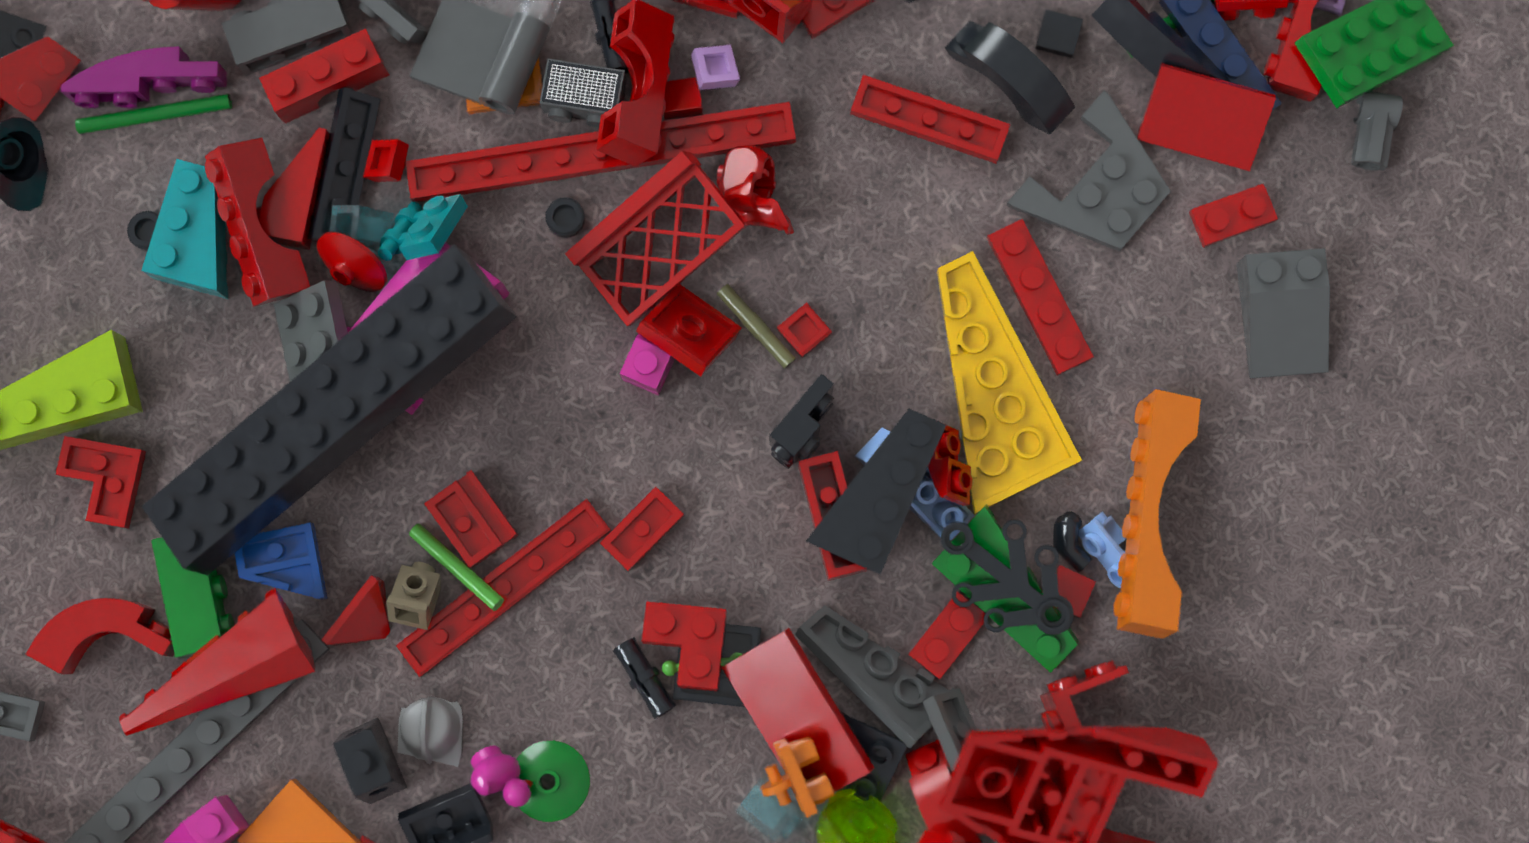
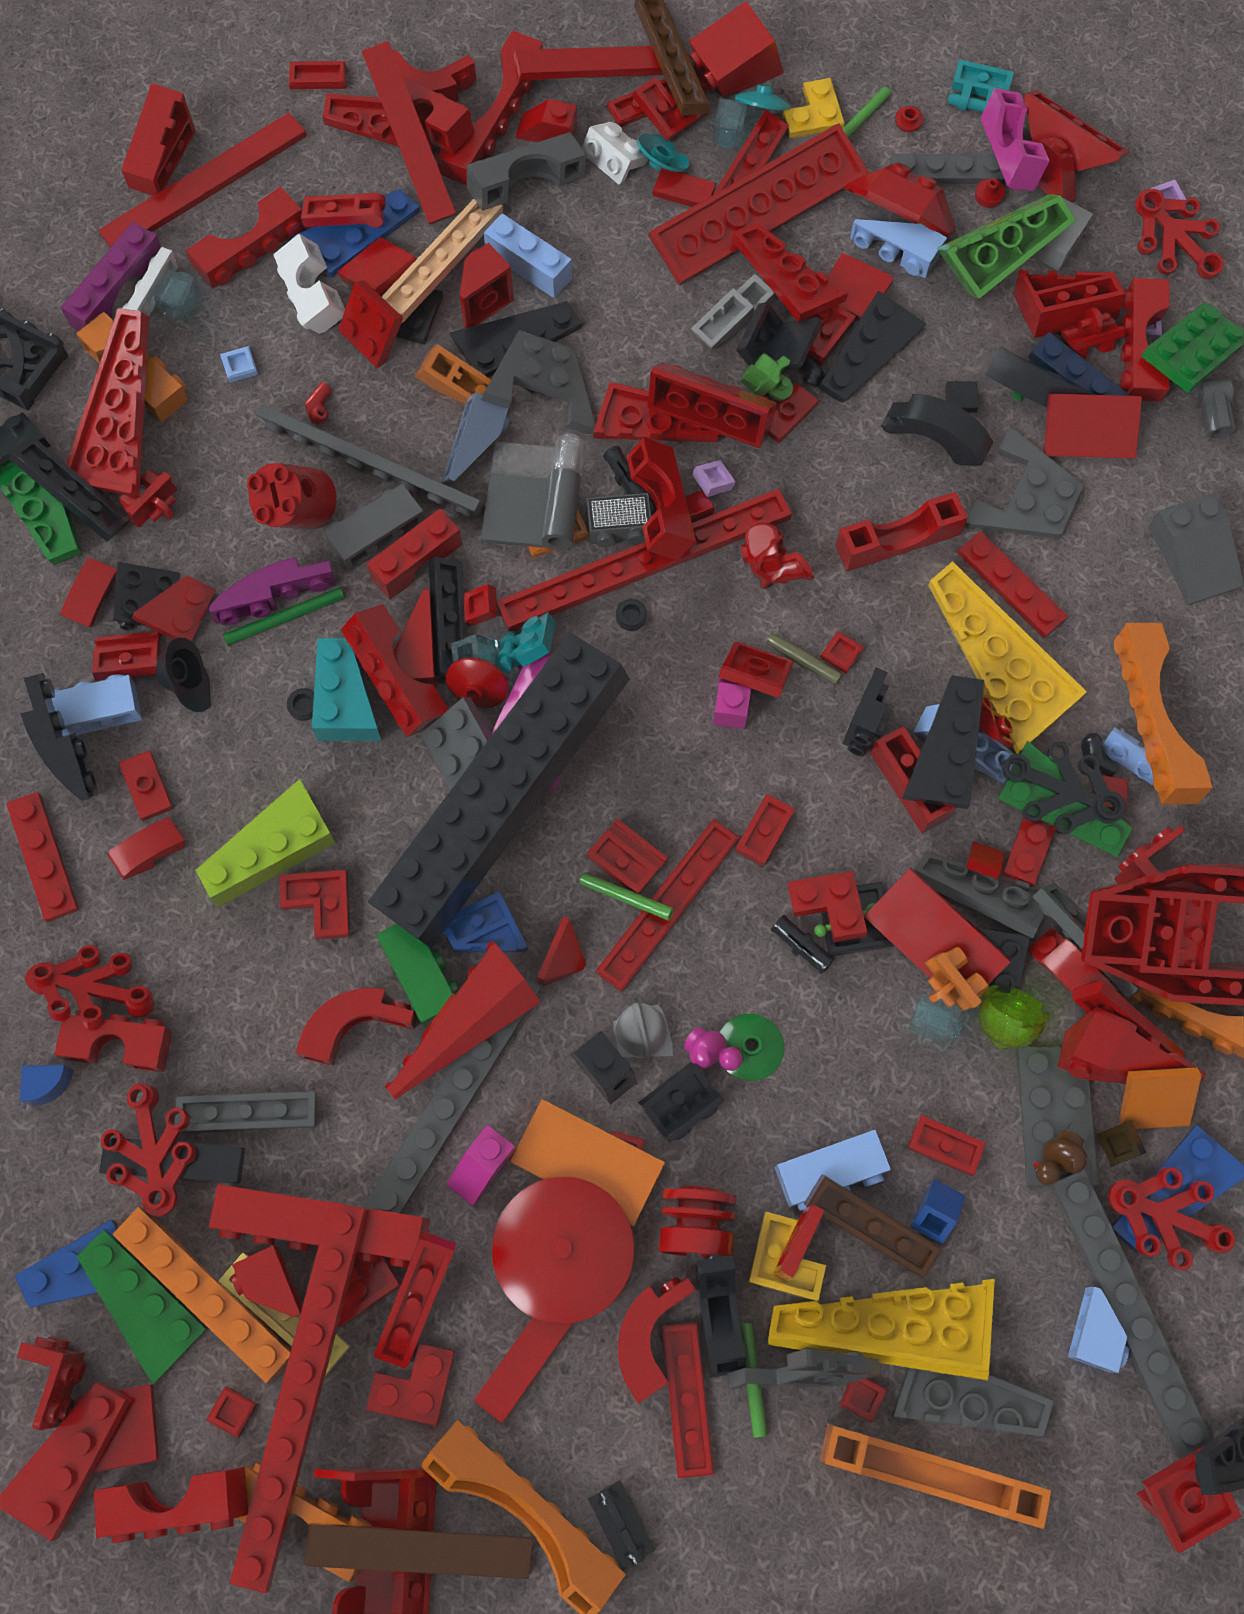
camera: 20 degrees left, 10 degrees down
(414, 595) = (600, 918): dark tan brick -> none
(635, 211) = (688, 592): red fence -> none
(890, 634) = (985, 860): none -> red tile
(929, 119) = (887, 477): red plate -> none
(951, 197) = (931, 523): none -> red arch
(1233, 215) = (1134, 492): red plate -> none

